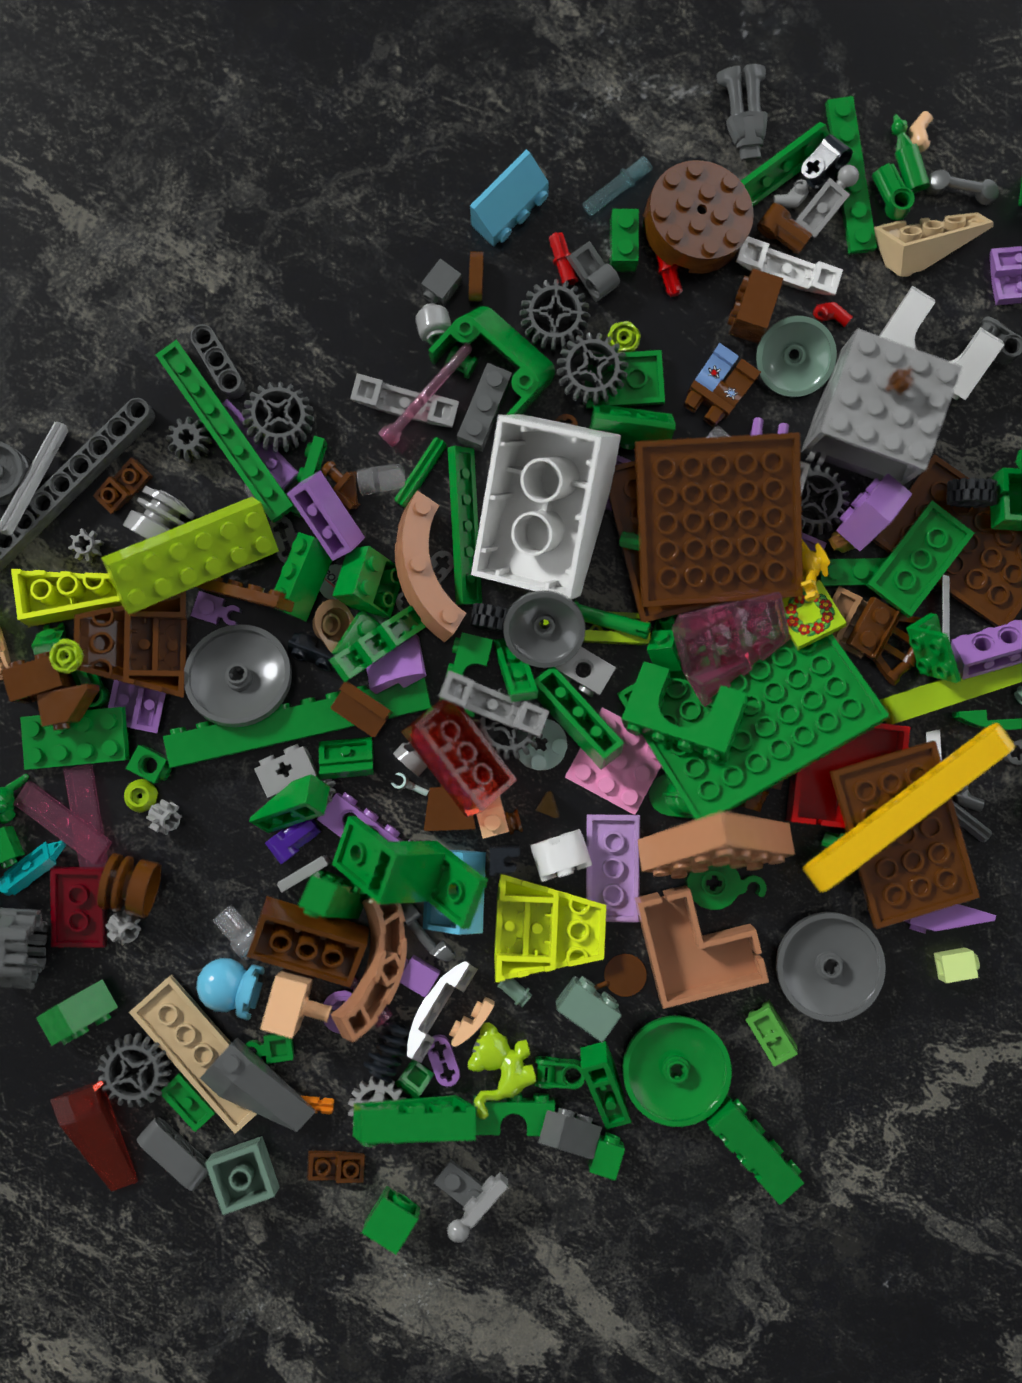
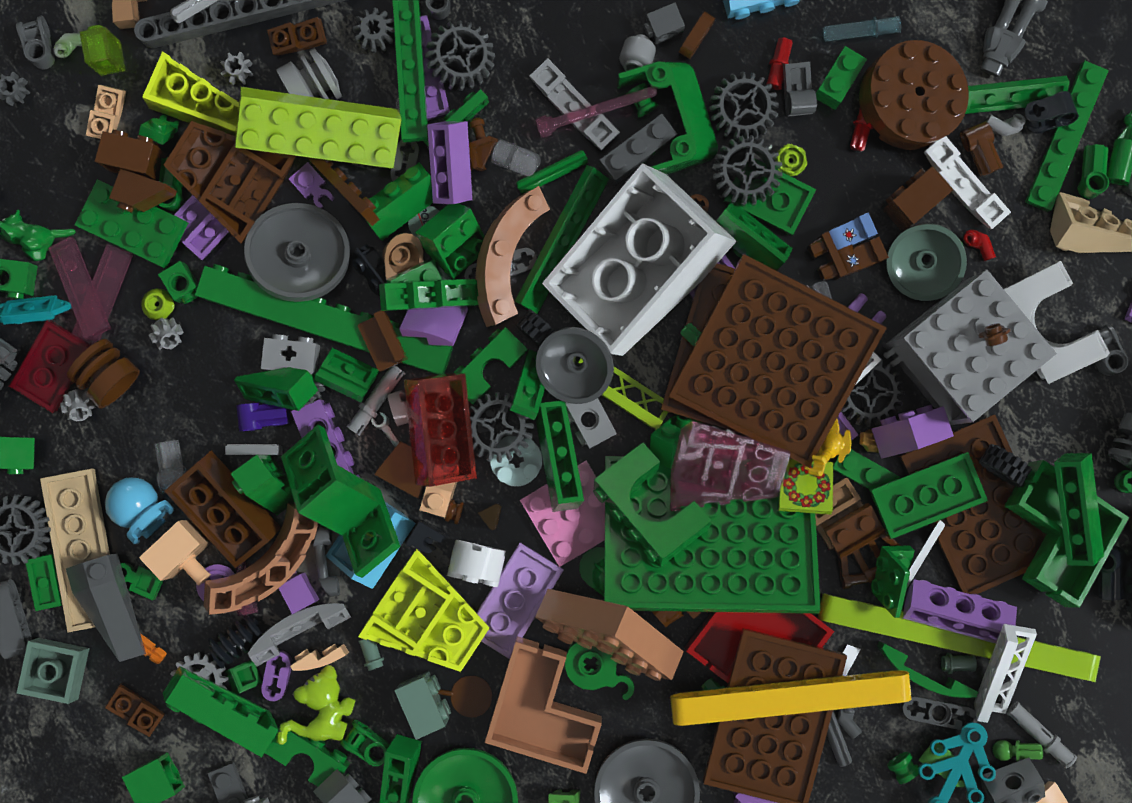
camera: 30 degrees right, 0 degrees up
(59, 652) = (156, 148): lime plate -> none
(385, 765) = (375, 400): none -> light grey pin
(493, 704) = (493, 403): light grey slope -> none
(614, 621) = (637, 393): green pin -> none
(828, 200) = (1032, 146): light grey plate -> none

